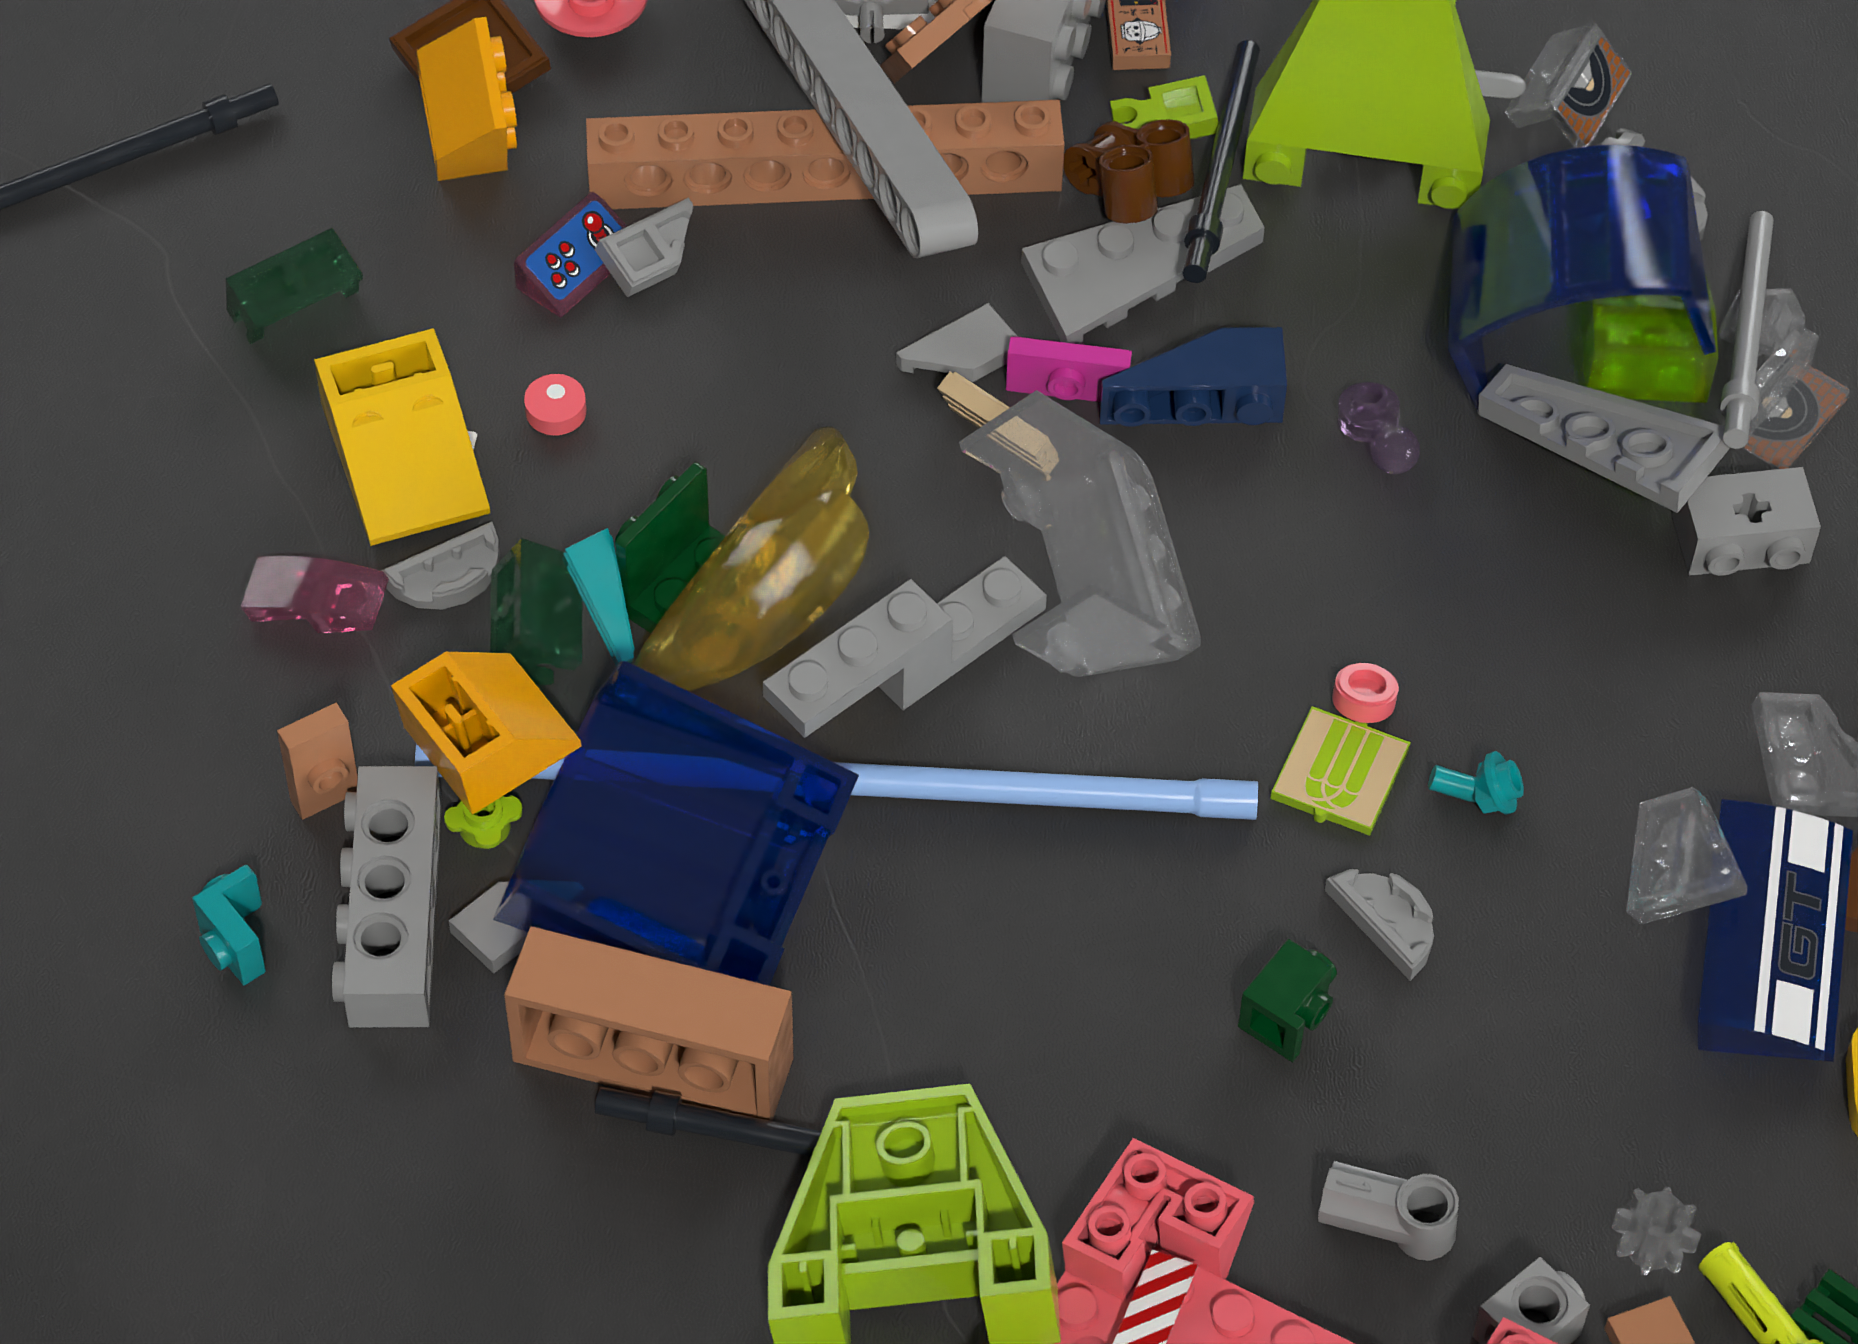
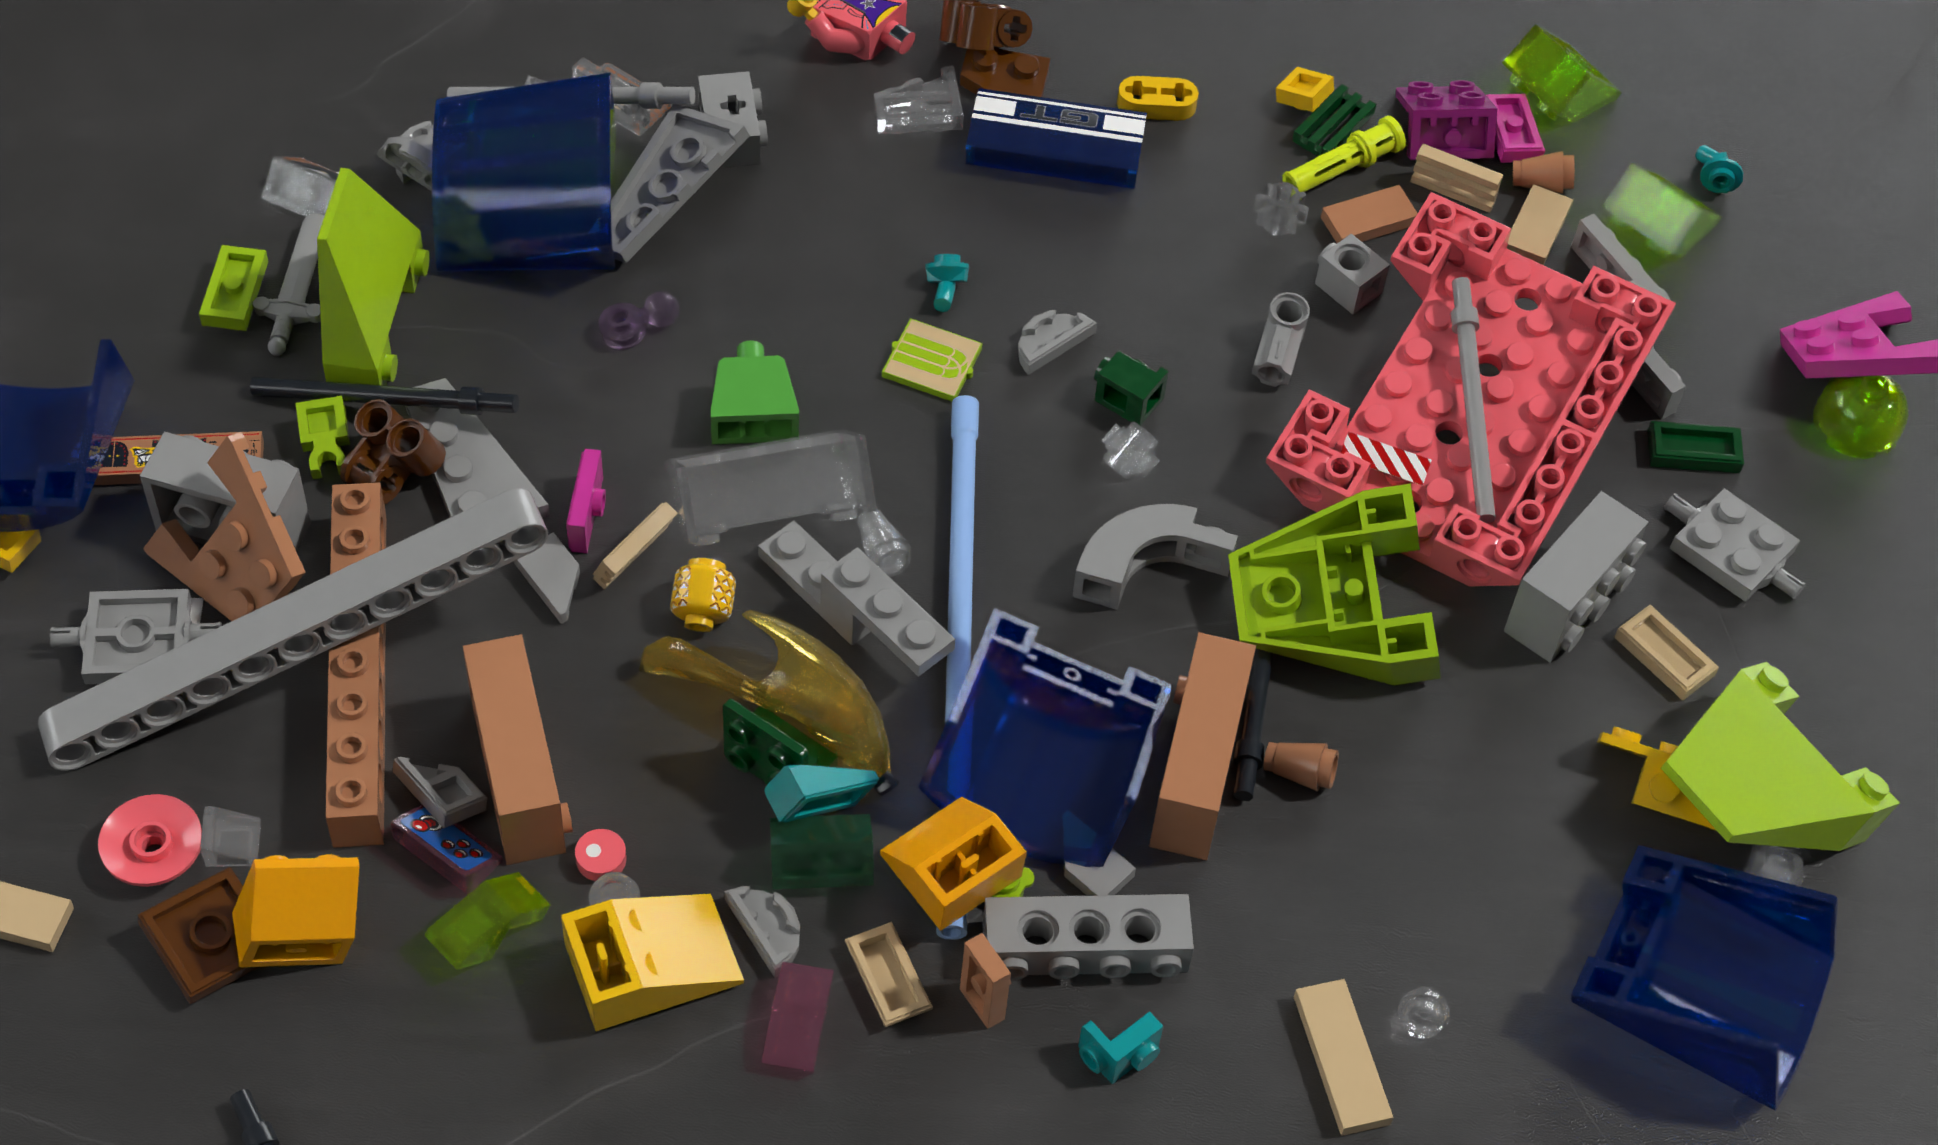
camera: 95 degrees left, 0 degrees up
(199, 1189) = (1343, 1057): none -> tan tile
(252, 1288) = (1423, 1012): none -> clear plate
(291, 282) = (480, 1052): clear green hinge -> none
(362, 686) = (888, 974): none -> tan tile
(473, 289) = (482, 919): none -> clear neon green slope
(494, 415) = (613, 886): none -> clear plate
(597, 63) = (229, 838): none -> clear slope
(640, 1176) = (1303, 763): none -> nougat cone
(679, 291) = (515, 751): none -> nougat brick
(921, 492) = (703, 594): none -> yellow head
(1004, 974) = (1144, 538): none -> light grey arch
(1008, 691) = (883, 543): none -> clear cone
(1168, 988) = (1130, 450): none -> clear gear
(1212, 379) = (594, 411): dark blue slope -> none
(1246, 547) = (753, 398): none -> bright green torso
(1365, 692) = (872, 339): coral tile -> none
(1680, 858) = (1009, 171): clear wing -> none

